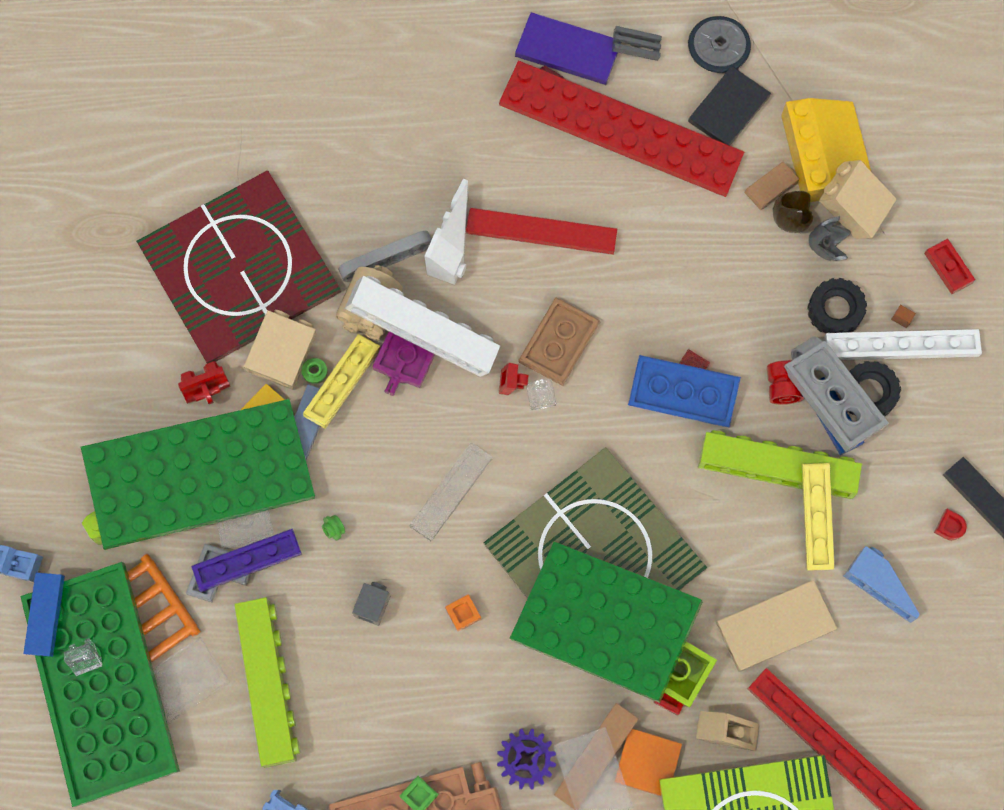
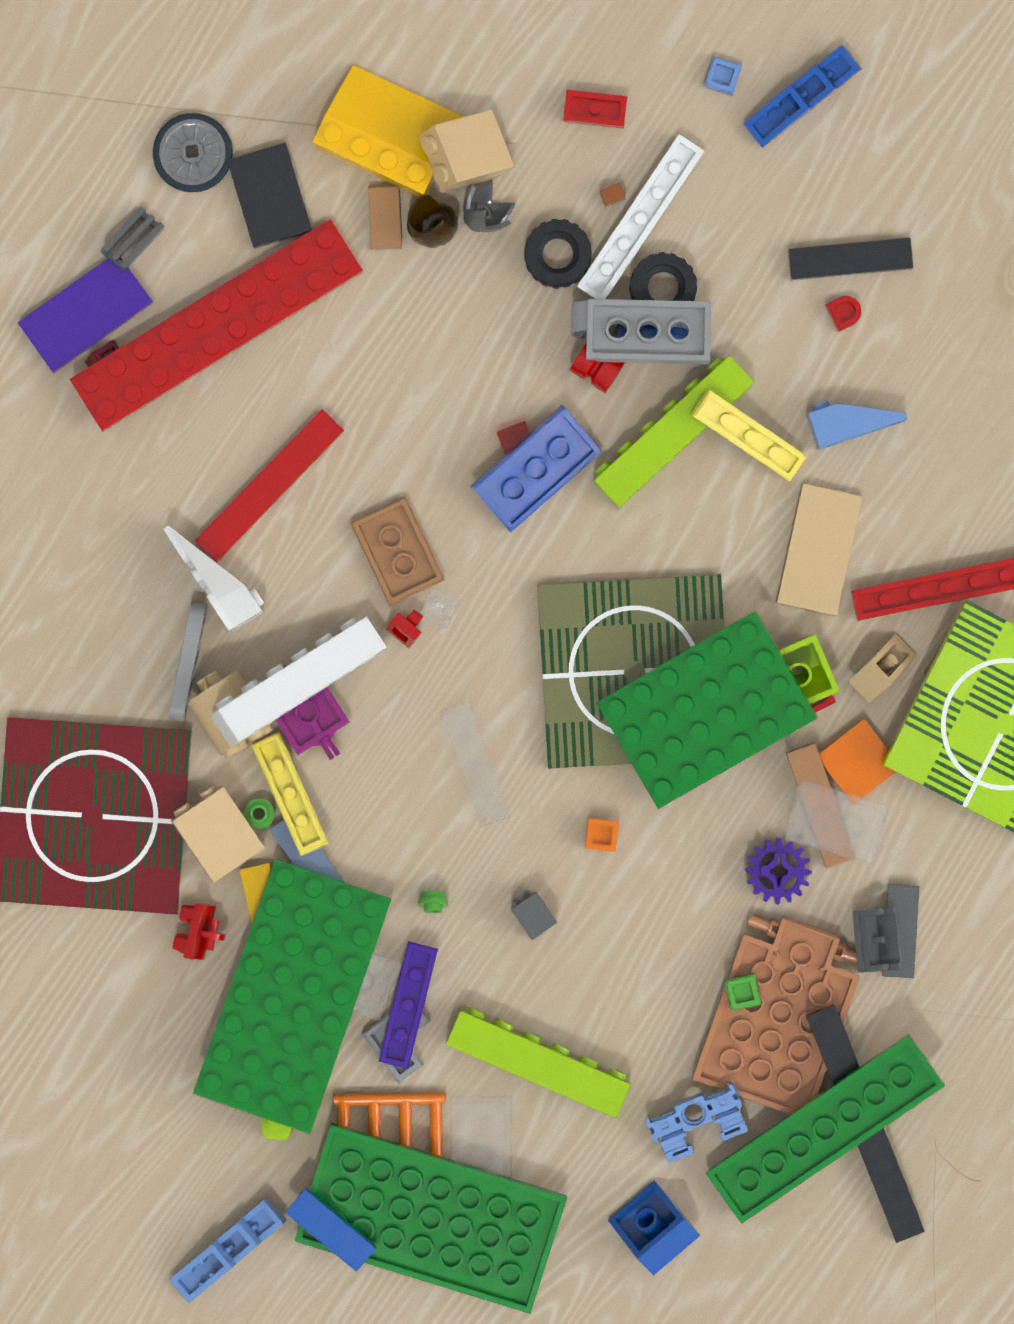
camera: 55 degrees left, 15 degrees up
(82, 658) = (402, 1218): clear tile -> none

